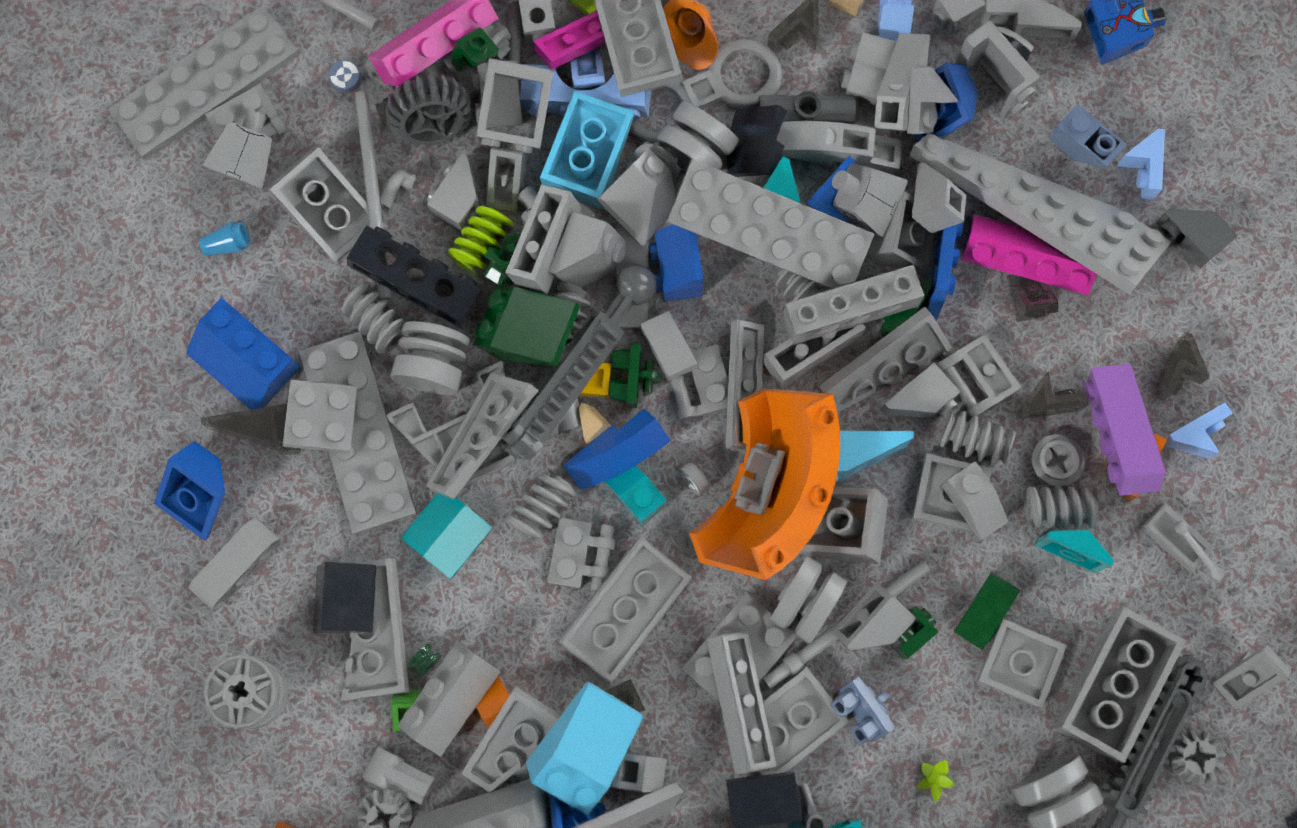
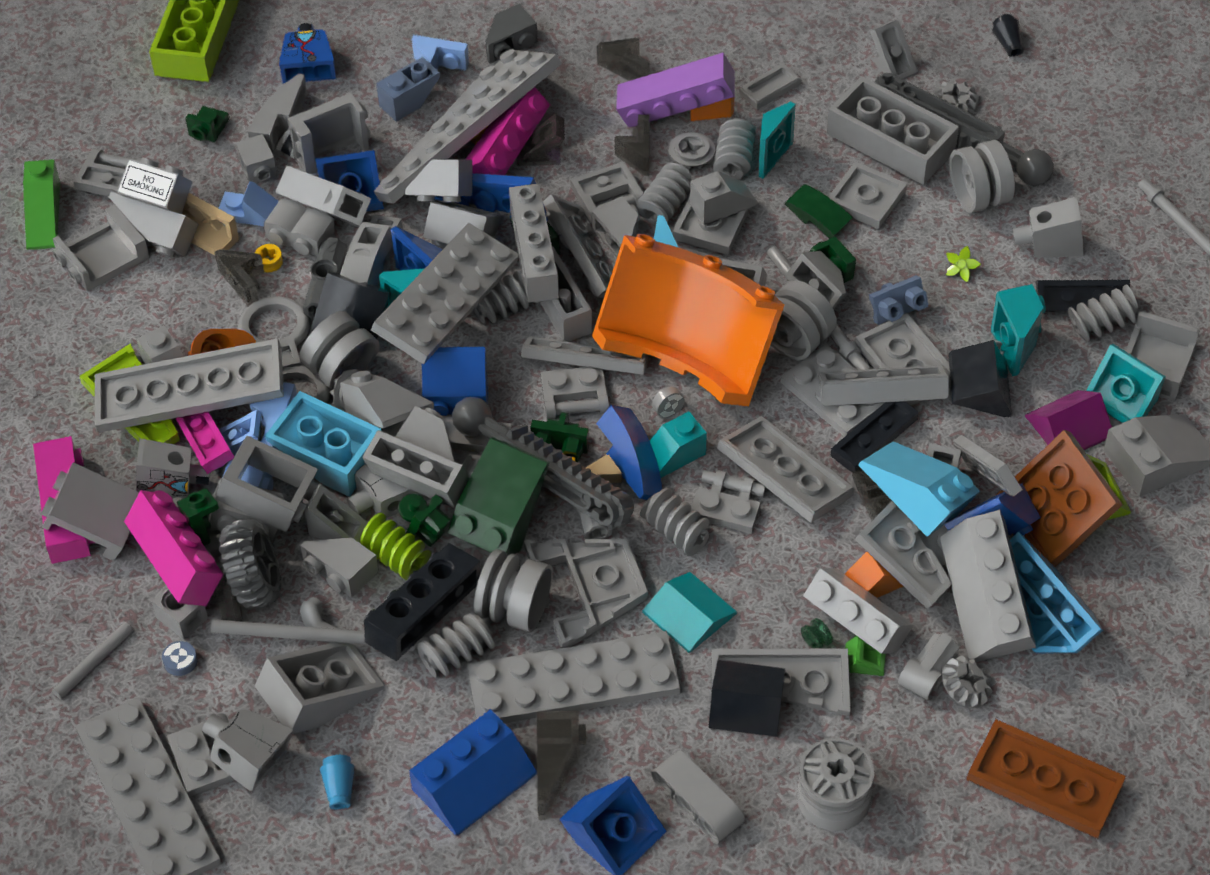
camera: 85 degrees left, 25 degrees down
(319, 416) = (556, 691): light grey plate -> none
(483, 427) = (594, 546): light grey wing -> none
(668, 345) = (536, 402): light grey tile -> none
(681, 698) = (874, 433): none -> black plate
(755, 493) = (680, 340): light grey hinge -> none
(830, 39) = (271, 251): none -> yellow bush
(867, 197) = (430, 224): light grey torso -> none
(925, 90) = (340, 174): light grey slope -> none
(1195, 436) = (678, 52): light blue slope -> none
(1215, 572) = (804, 64): light grey hinge -> none

